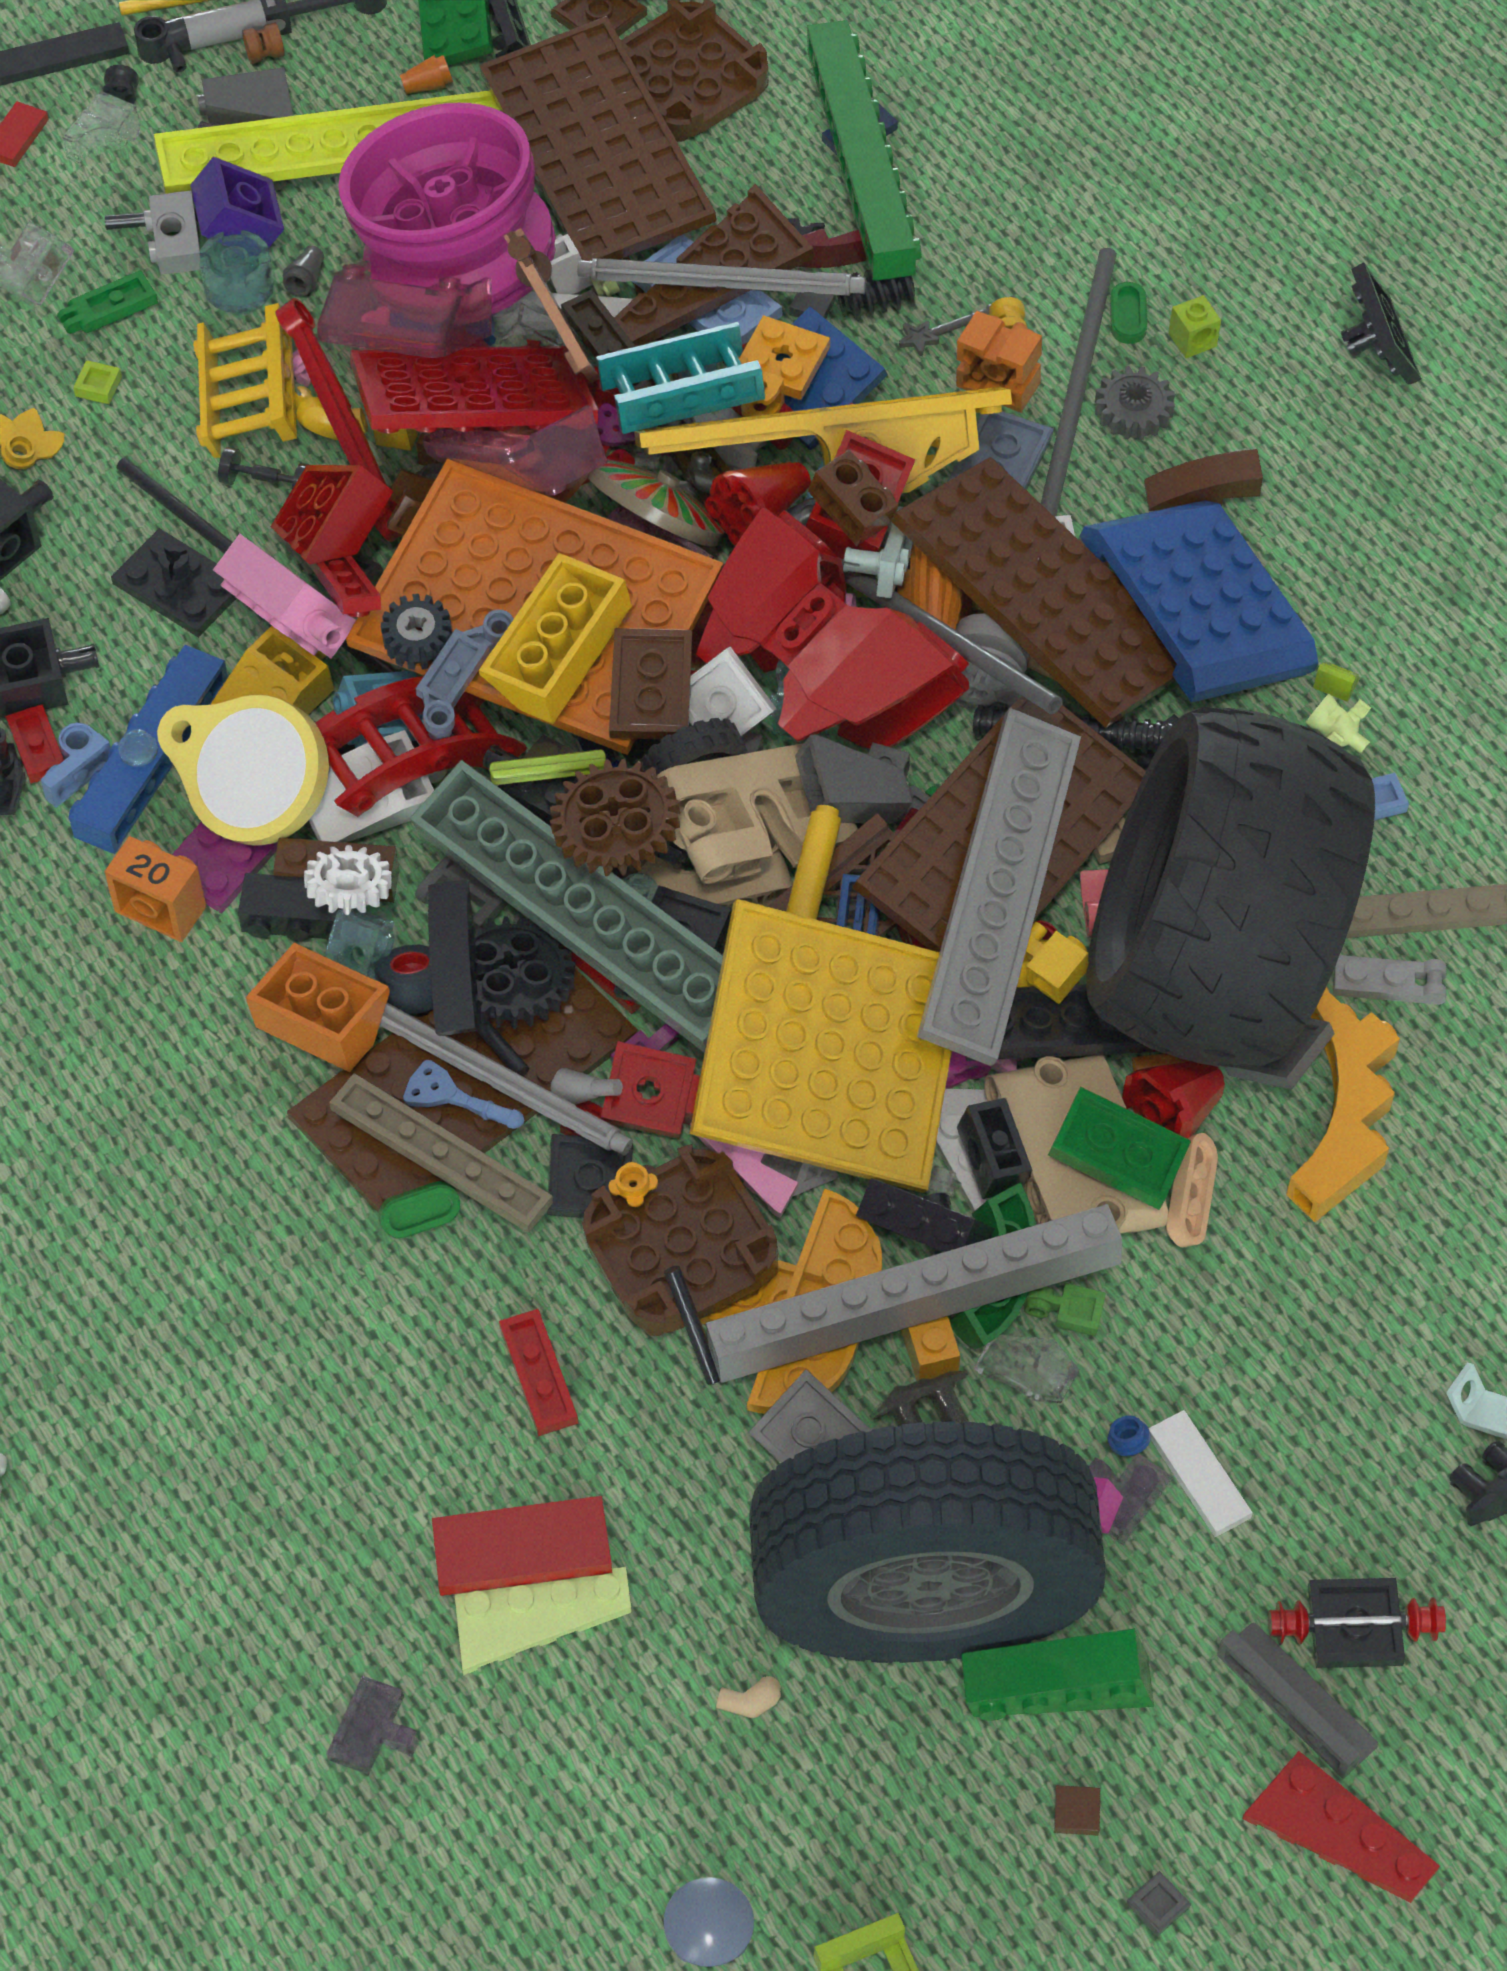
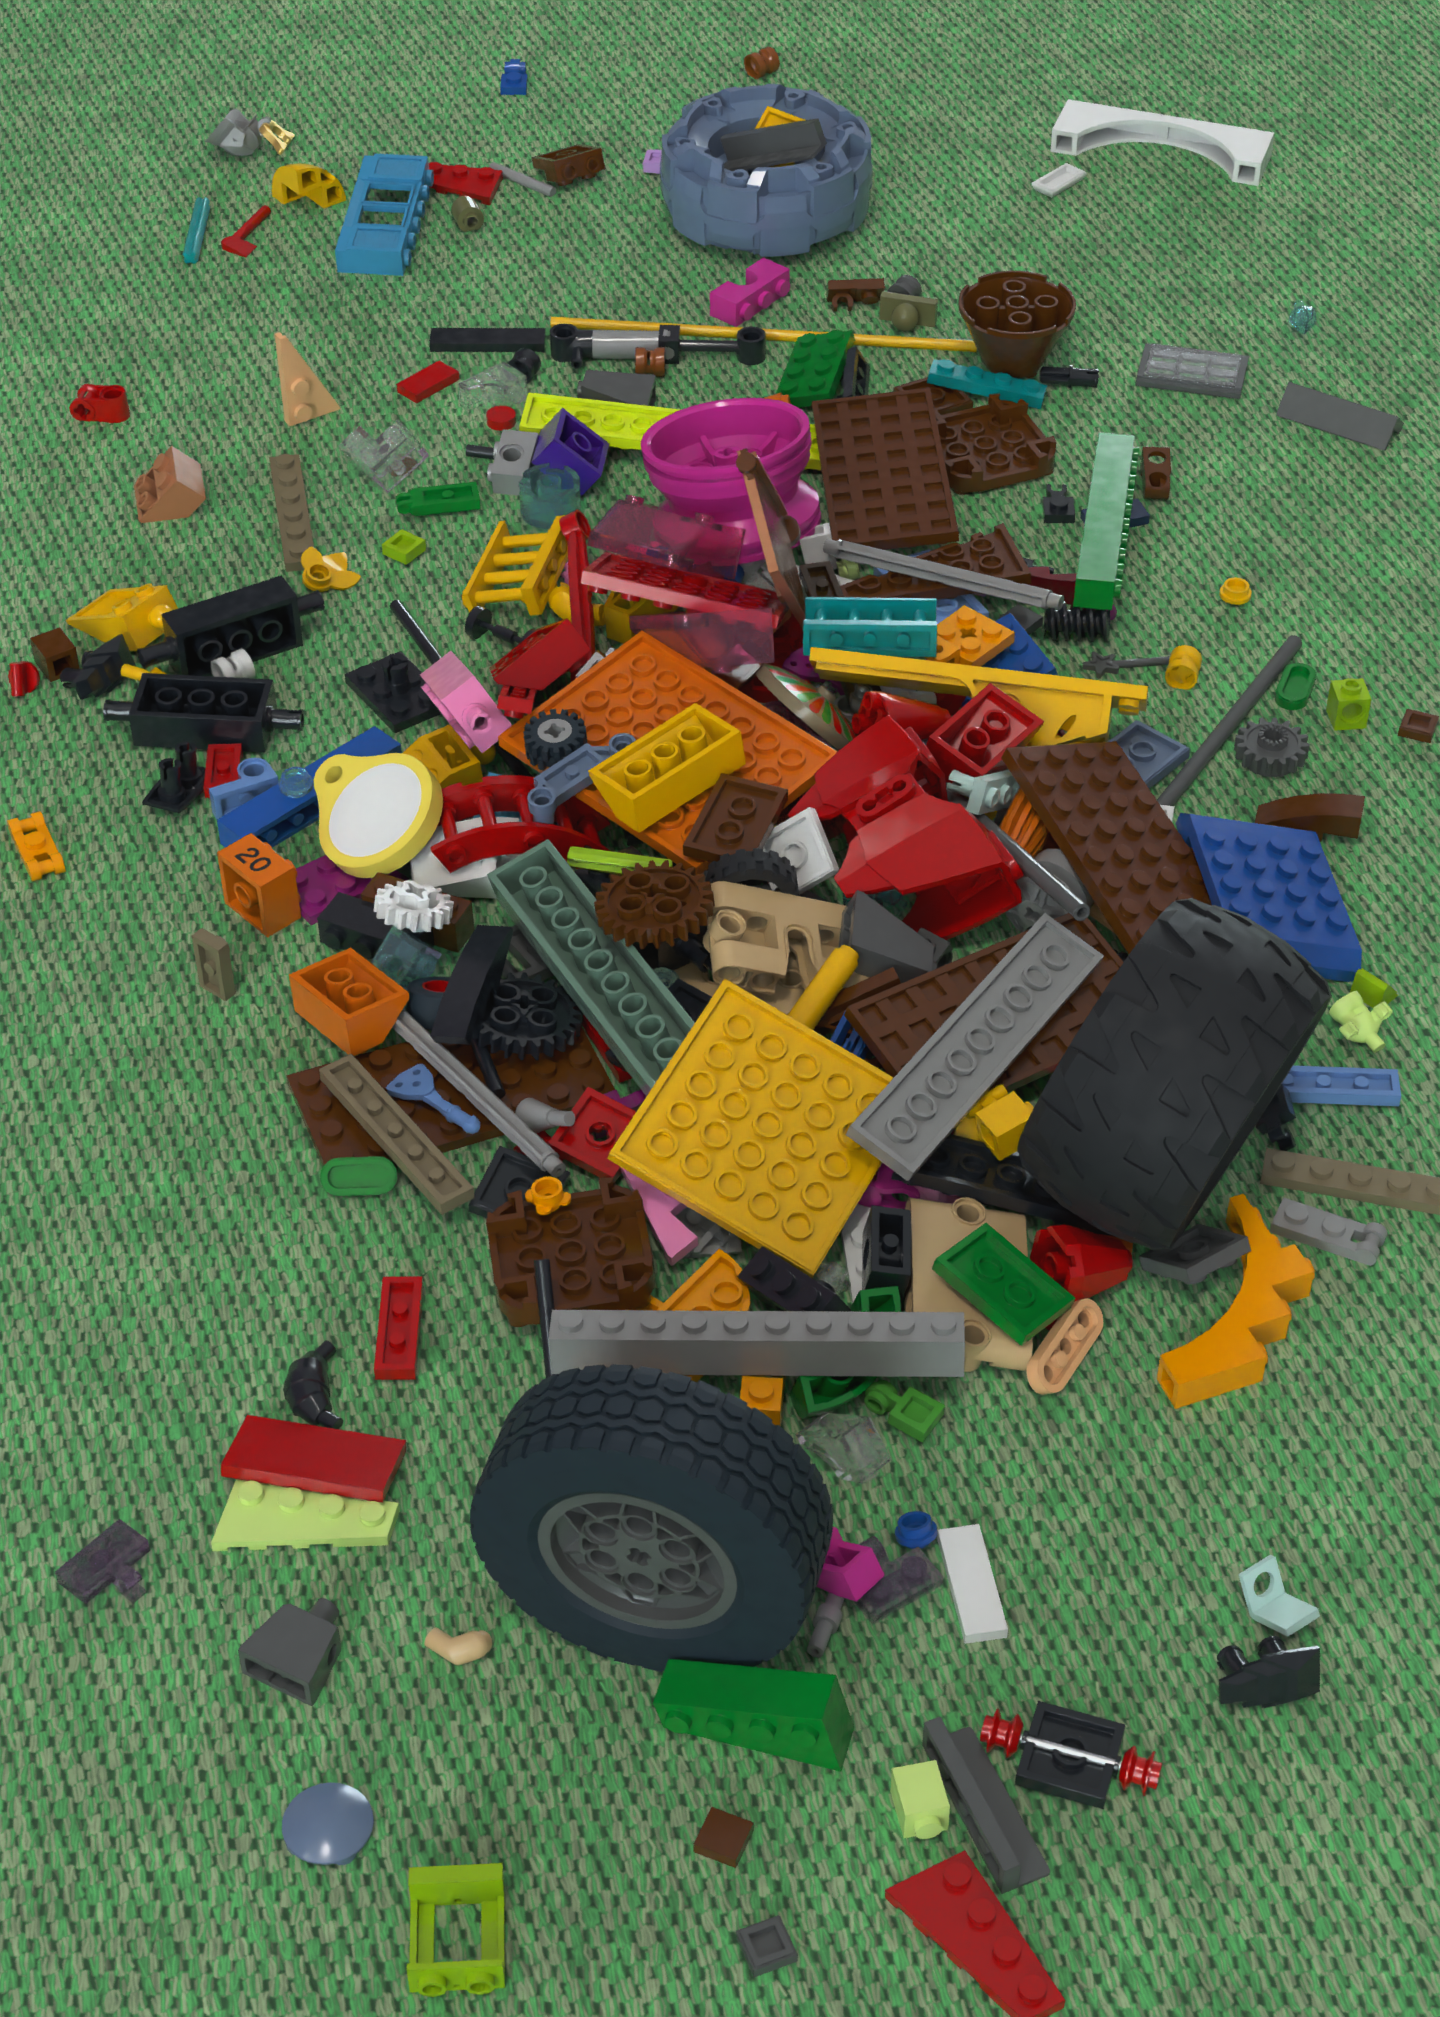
camera: 20 degrees right, 15 degrees down
(124, 166) = (501, 418): none -> red tile
(154, 1003) = (213, 964): none -> dark tan plate
(302, 274) = (598, 509): dark grey cone -> none
(477, 1468) = (309, 1389): none -> black piece
(599, 1757) = (294, 1650): none -> dark grey torso
(793, 134) = (1058, 507): none -> black plate
(847, 501) = (972, 727): reddish brown brick -> none
(884, 62) = (1155, 475): none -> reddish brown leg
(1000, 358) = (1169, 684): orange brick -> none
(1024, 203) = (1235, 591): none -> yellow plate
(1242, 1716) = (920, 1800): none -> yellowish green brick
(1269, 330) = (1418, 725): none -> reddish brown tile

